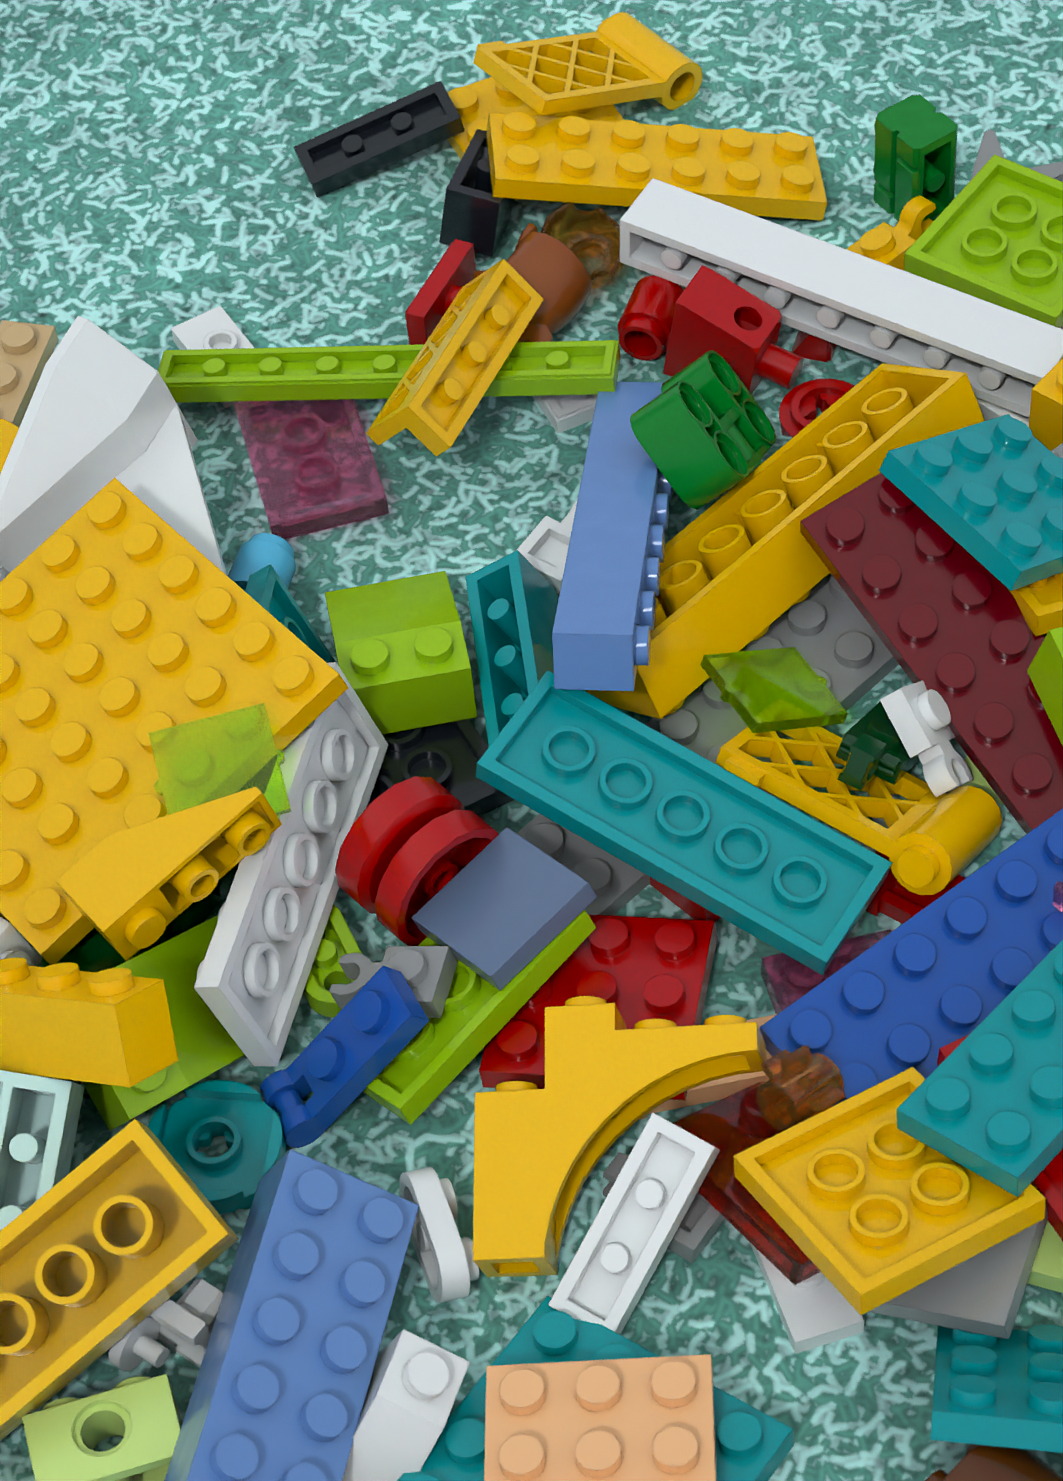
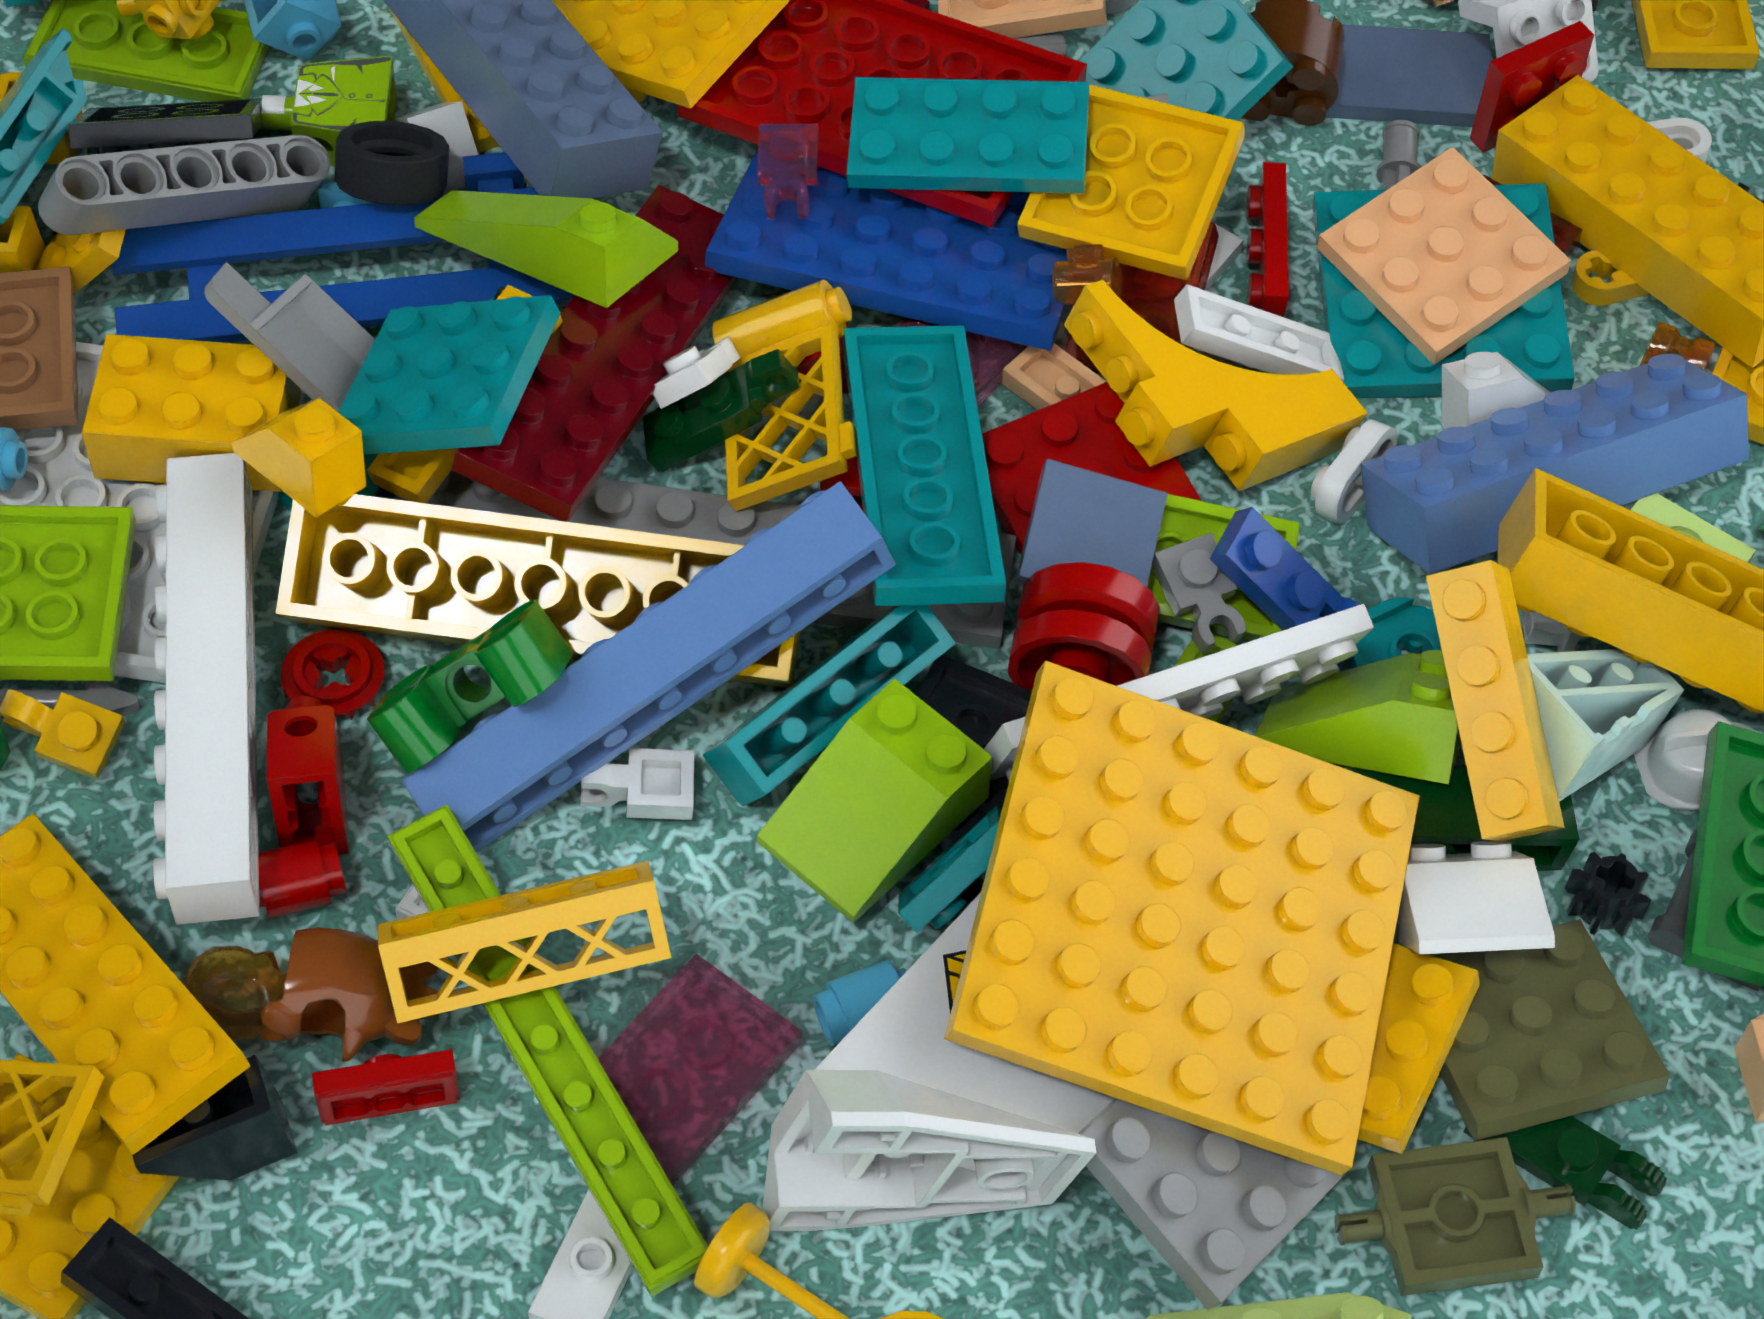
camera: 135 degrees left, 5 degrees up
(155, 870) = (1308, 702): yellow slope -> none
(219, 759) = (1195, 707): clear neon green piece -> none
(763, 1352) = (1269, 241): none -> red plate
(773, 689) = (723, 497): clear neon green piece -> none
(980, 366) = (308, 455): none -> yellow slope

